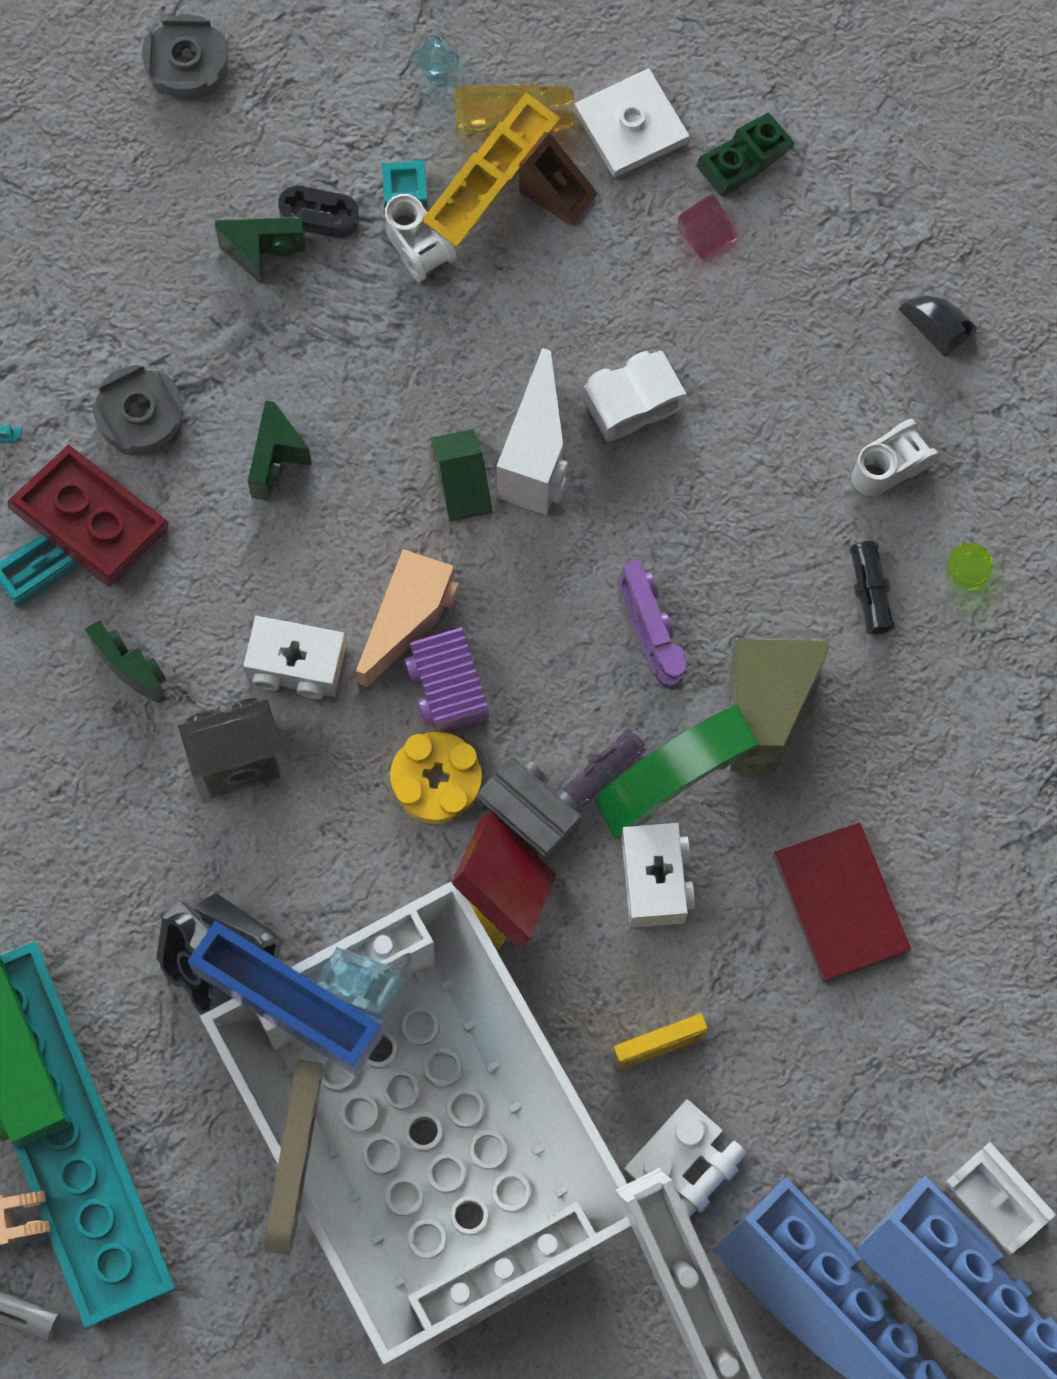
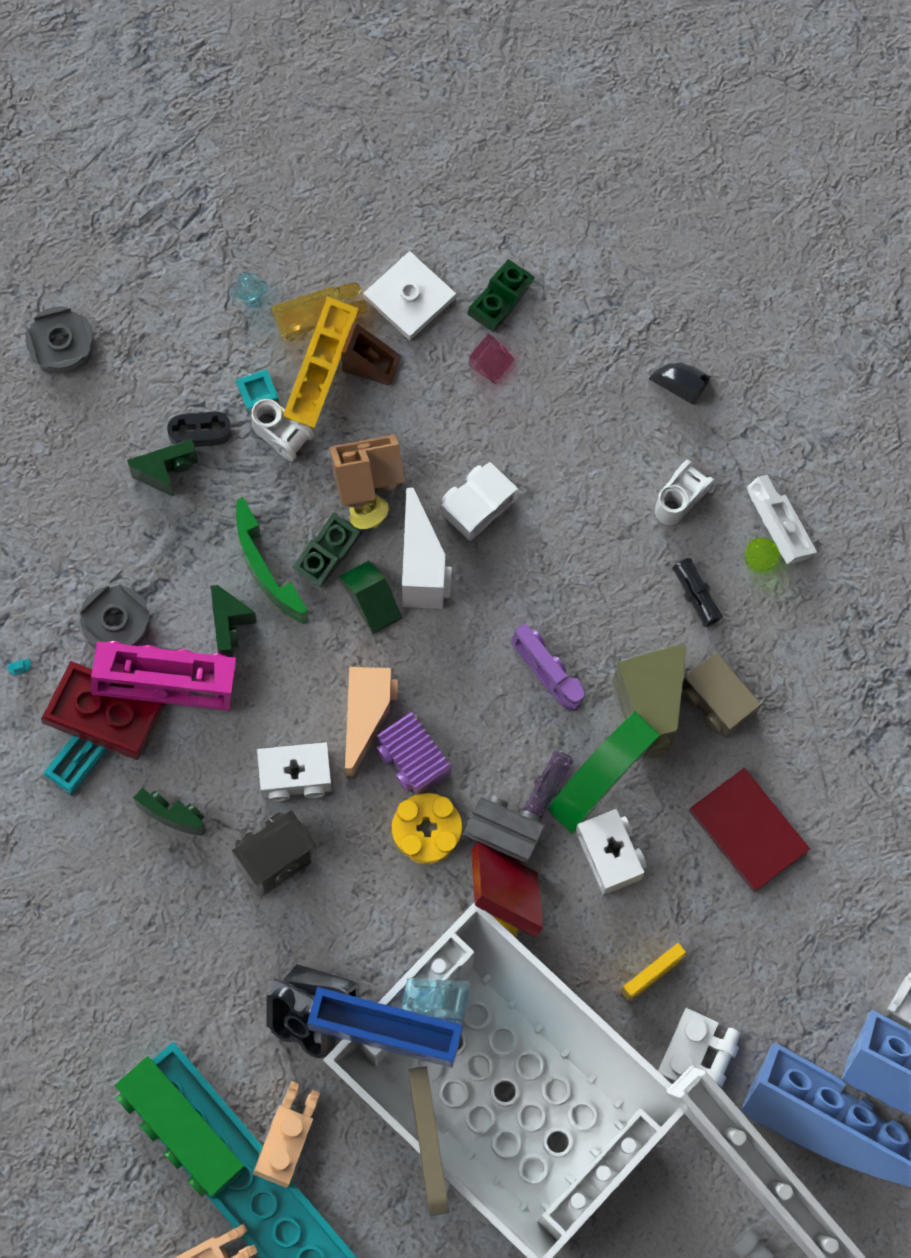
camera: 20 degrees left, 0 degrees up
(131, 1103) = (285, 1138): none -> light nougat hinge
(172, 492) = (163, 675): none -> dark pink brick
(353, 440) = (285, 597): none -> green slope
(426, 403) = (327, 550): none -> dark green slope
(492, 369) = (370, 514): none -> light yellow hat
(504, 312) = (365, 466): none -> medium nougat brick
(857, 723) = (719, 696): none -> dark tan brick
(1007, 531) = (781, 521): none -> white hinge

